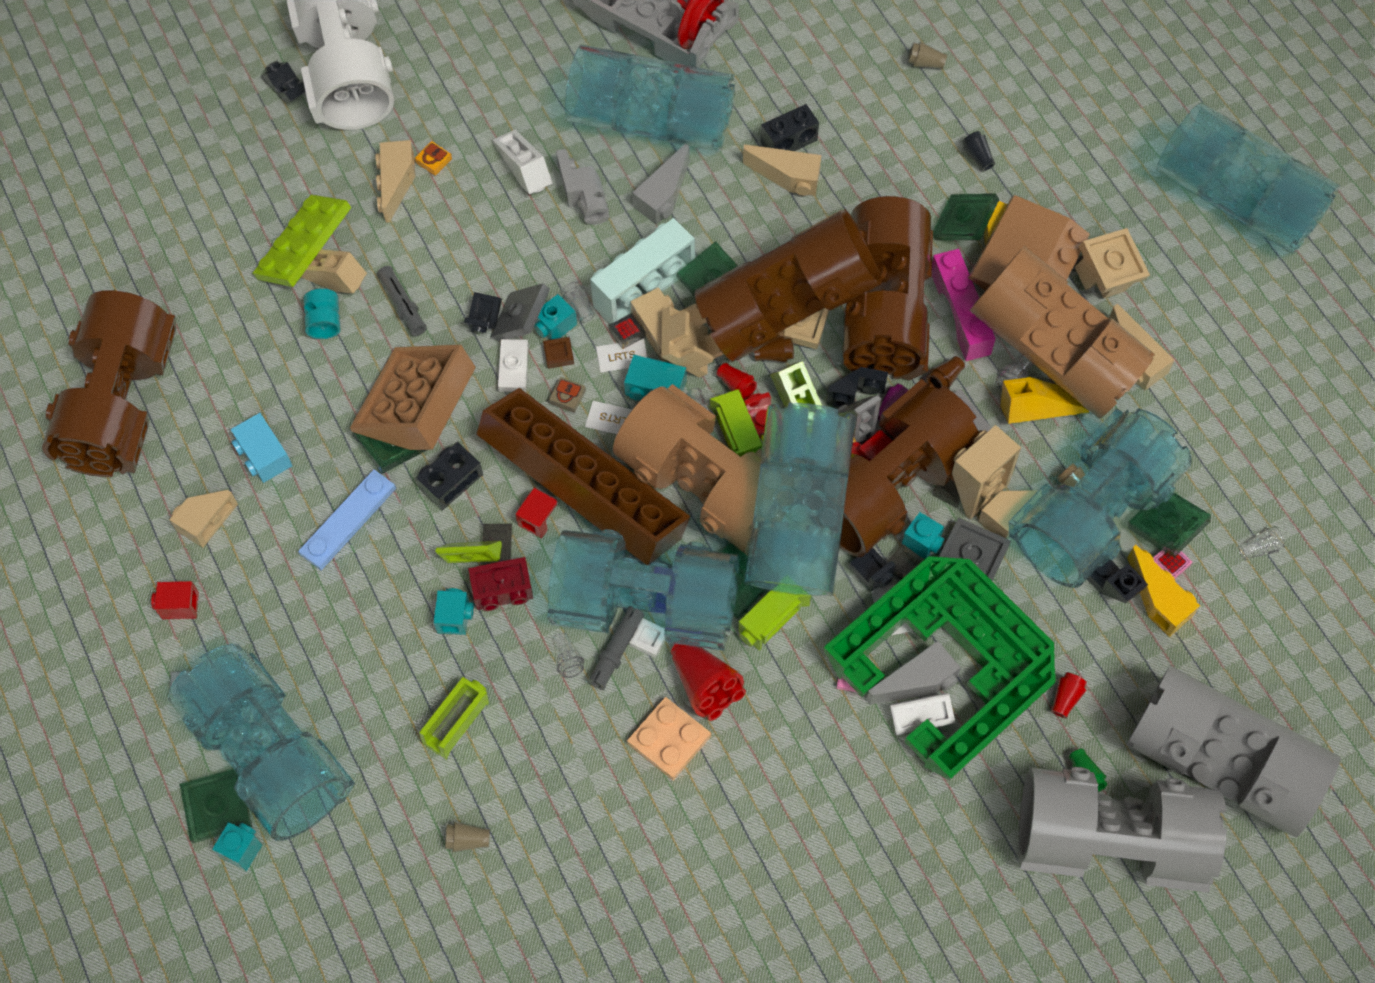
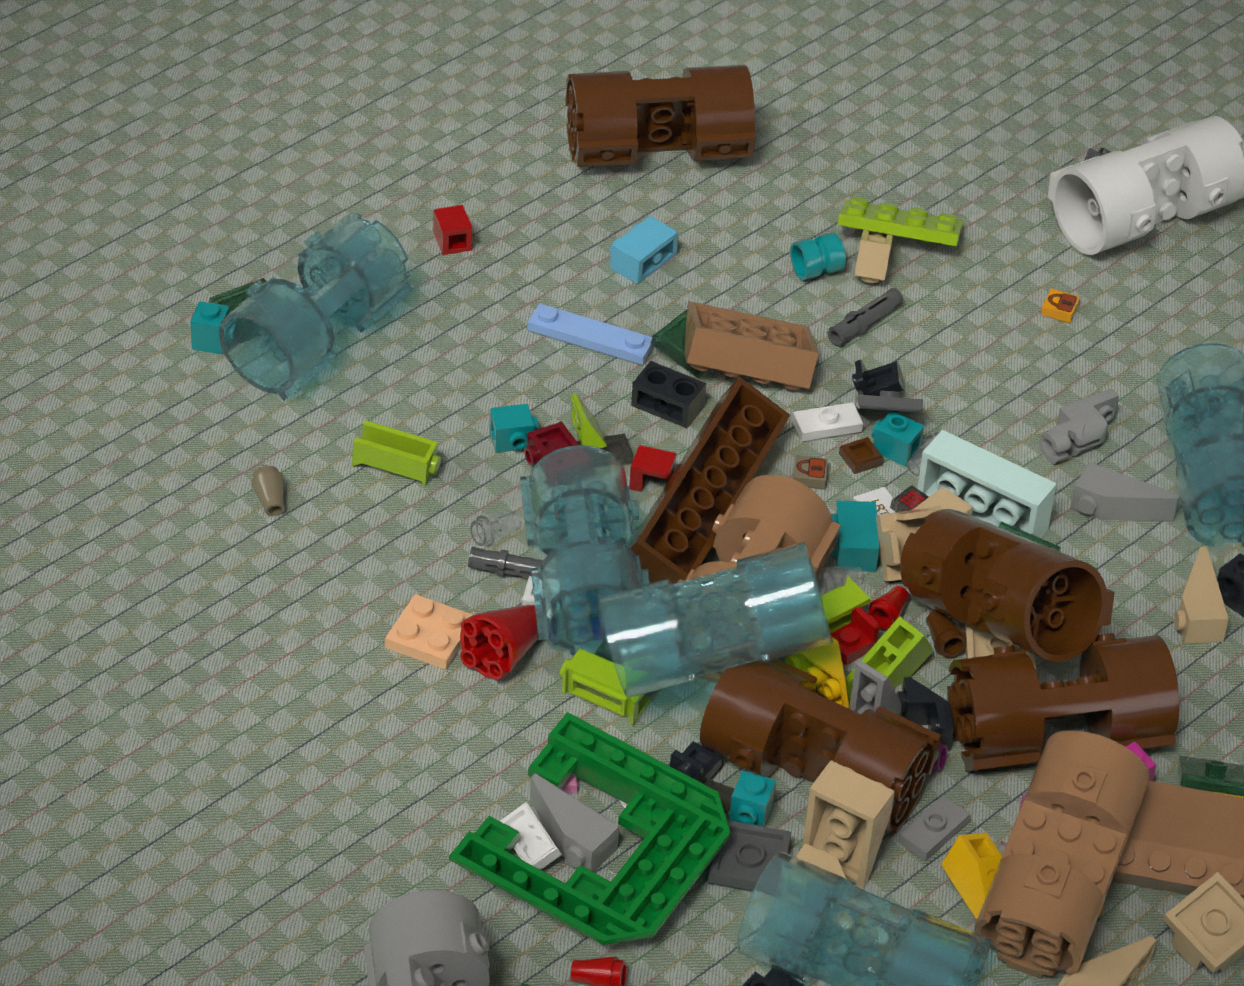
camera: 70 degrees right, 20 degrees down
(203, 515) = (550, 226): tan slope -> none
(397, 174) = (1018, 276): tan slope -> none
(524, 161) = (1088, 373): white slope -> none
(945, 373) = (983, 795): reddish brown cone -> none

